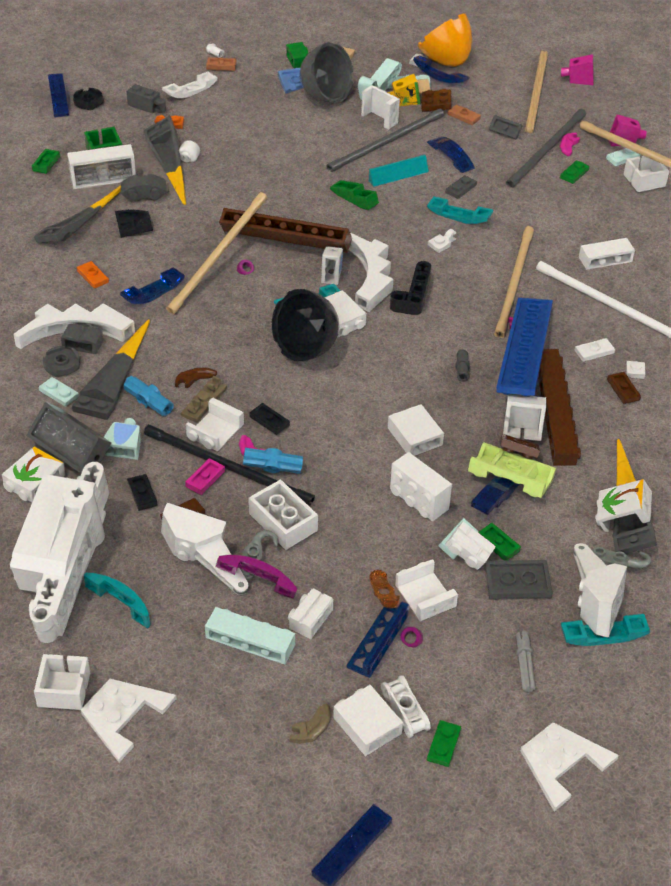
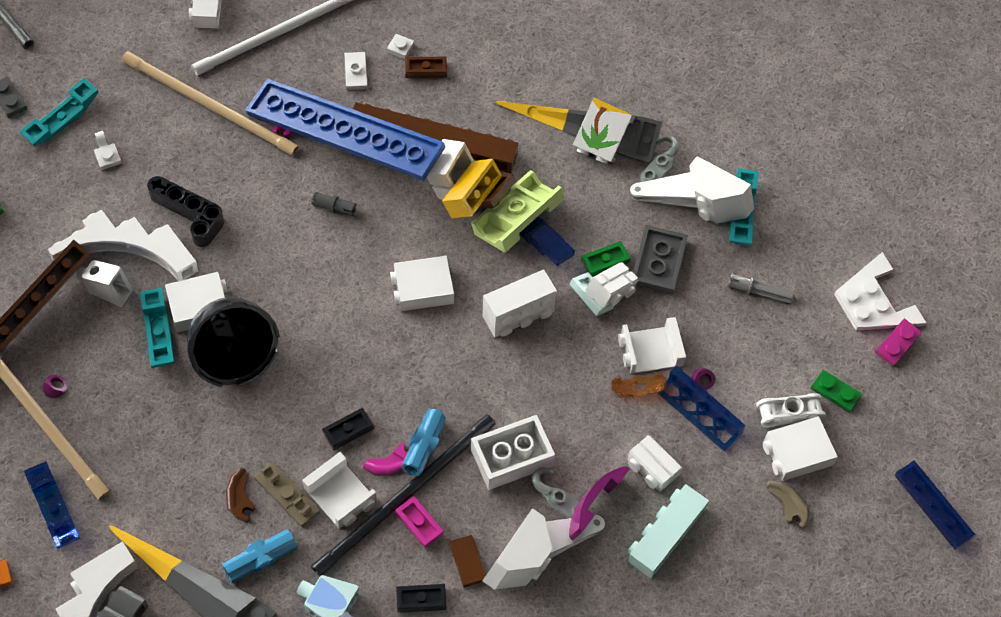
camera: 75 degrees left, 15 degrees up
(511, 428) = (472, 188): none -> yellow brick
(520, 785) = (898, 342): none -> dark pink plate

